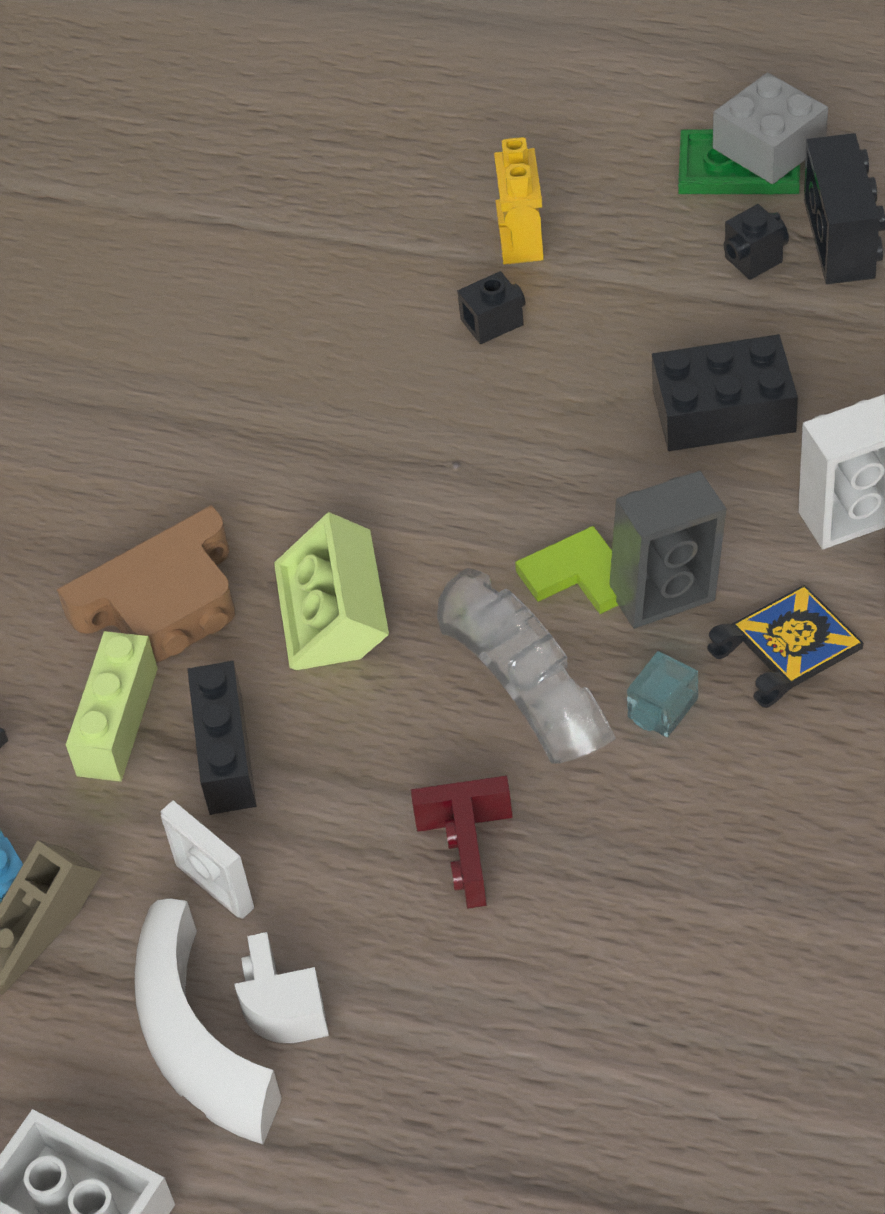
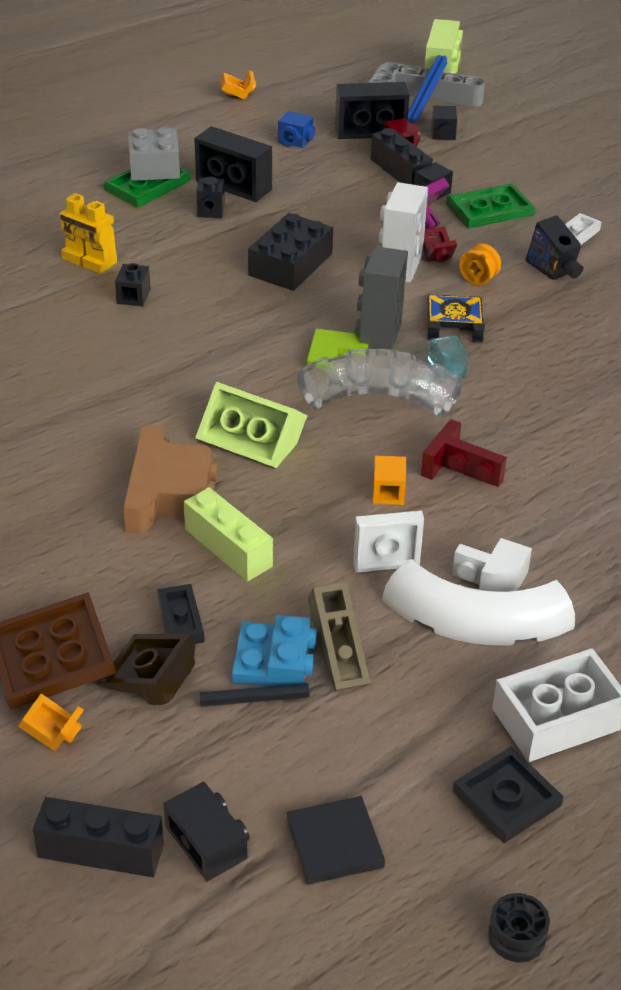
camera: 60 degrees left, 10 degrees down
(221, 738) = (301, 505): black brick -> none
(351, 789) = (389, 480): none -> light orange brick

